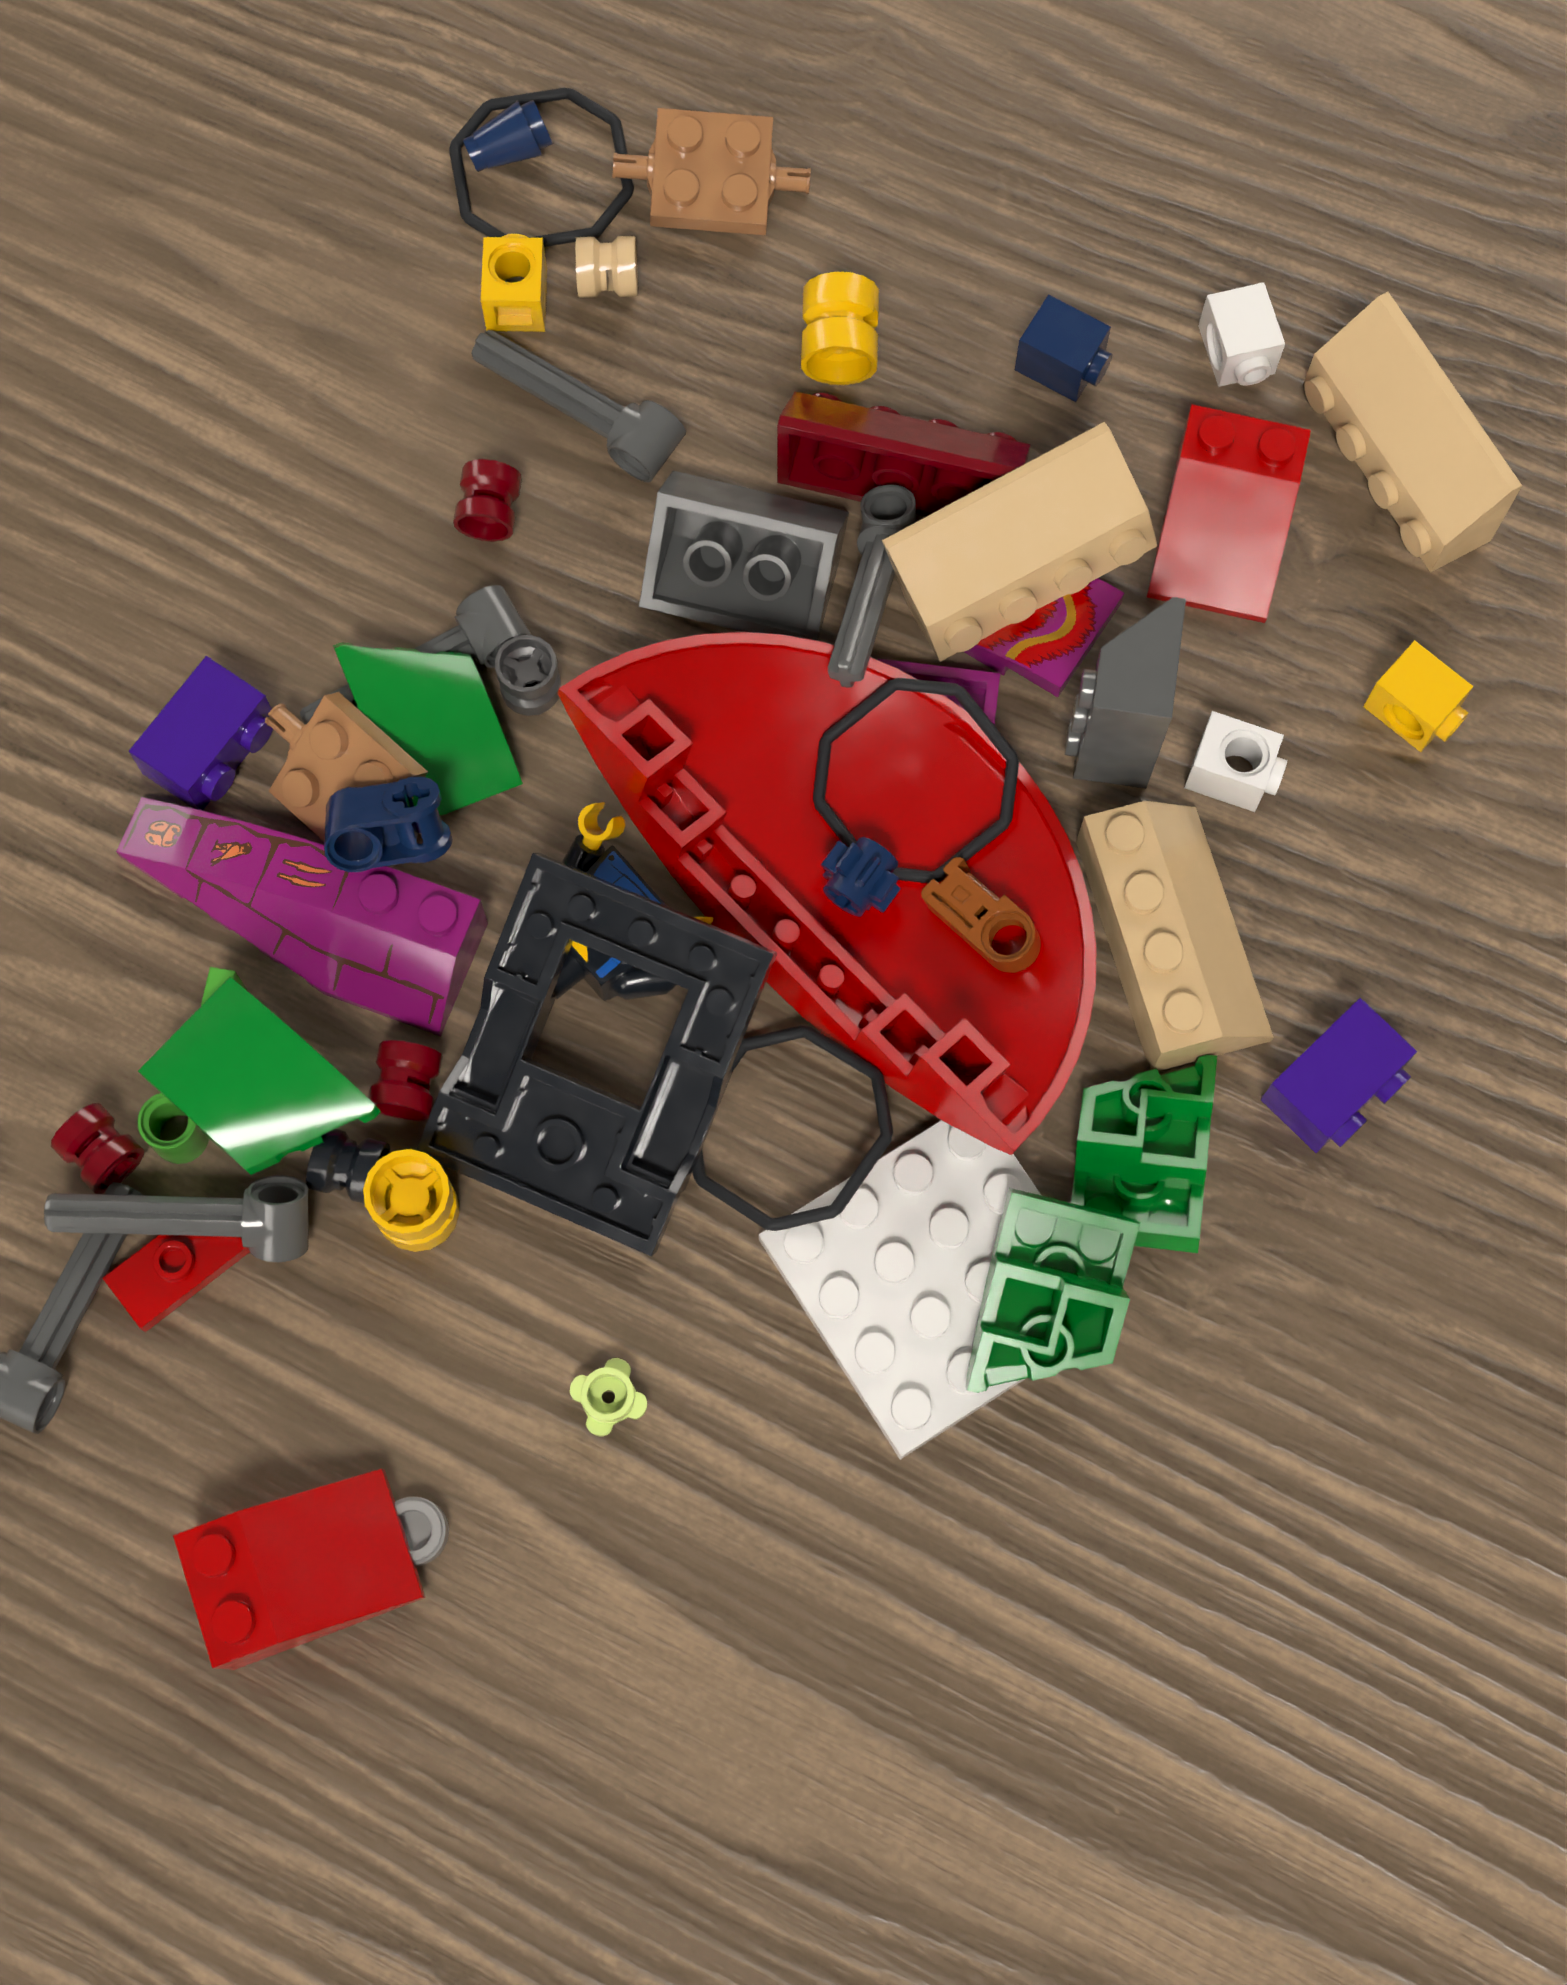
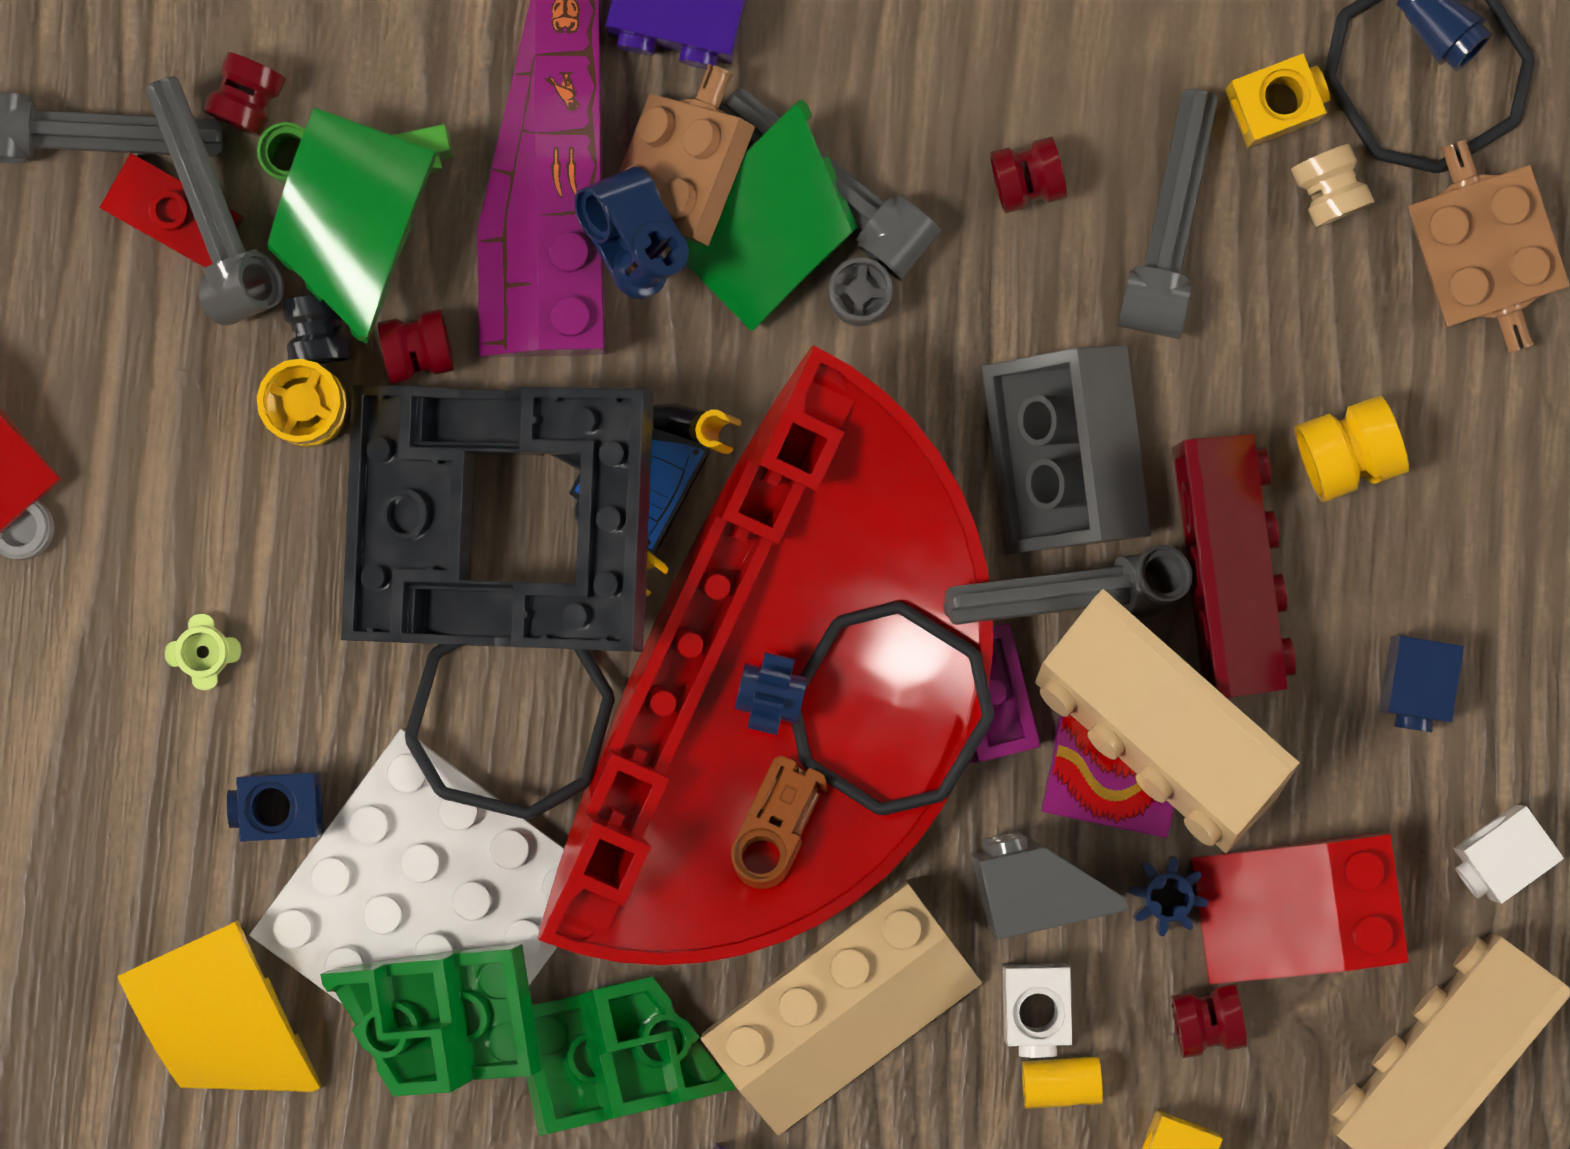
camera: 70 degrees right, 15 degrees up
(793, 1349) = (305, 800): none -> dark blue brick
(971, 1514) = (218, 1018): none -> yellow slope
(1194, 615) = (1176, 911): none -> dark blue gear
(1301, 624) = (1194, 1024): none -> dark red wheel
(1312, 769) = (1062, 1082): none -> yellow piece

